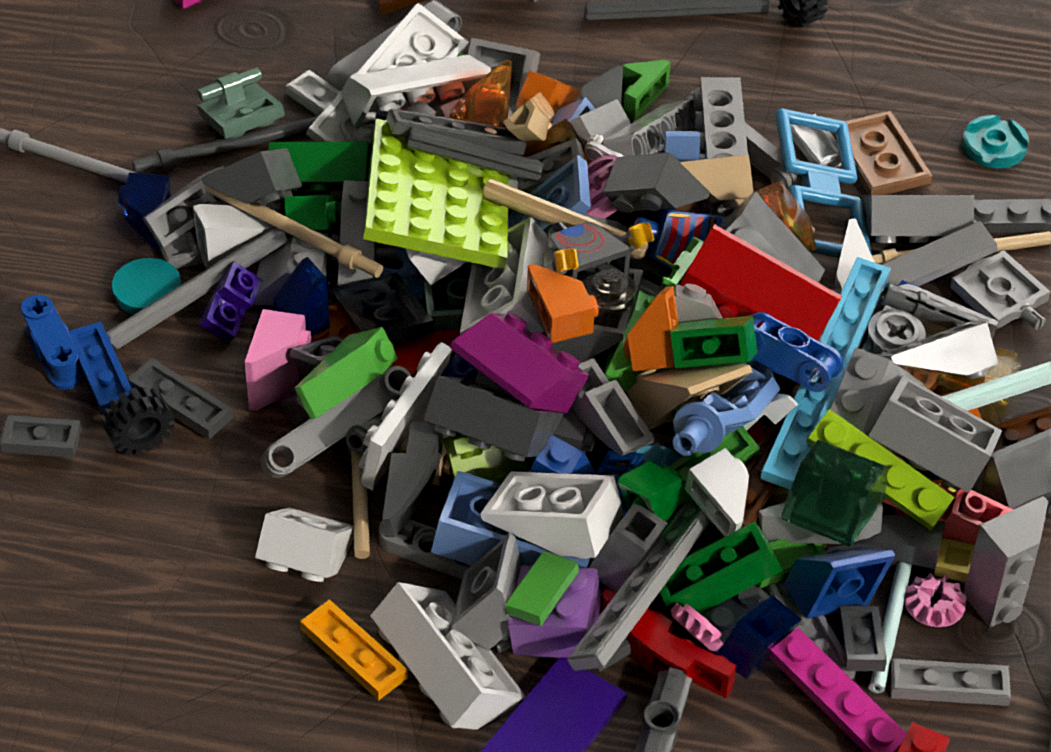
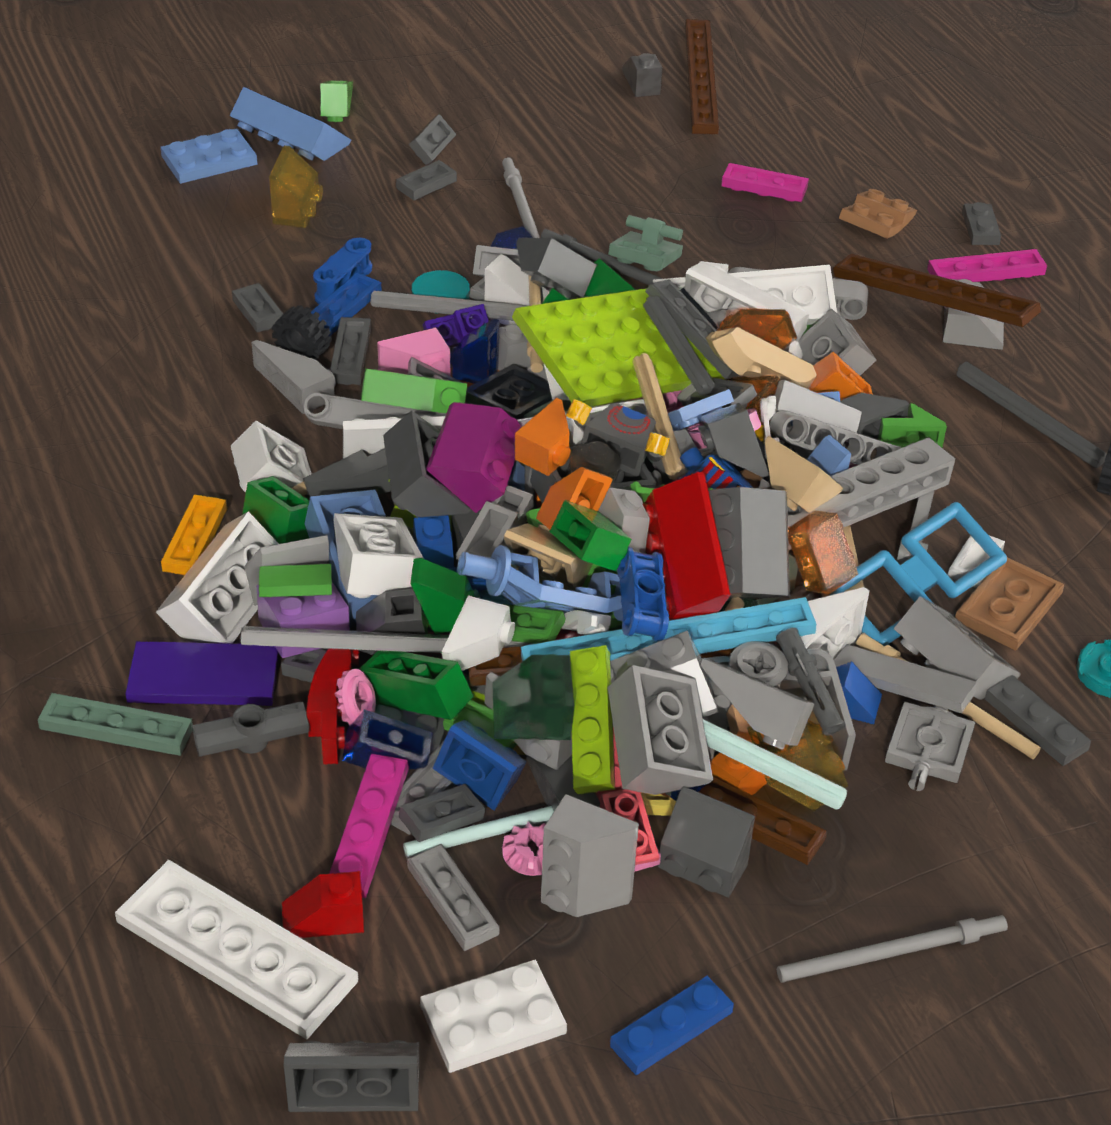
camera: 55 degrees right, 5 degrees down
(185, 458) = (292, 373): none -> light grey slope
(386, 560) = (277, 509): none -> green brick

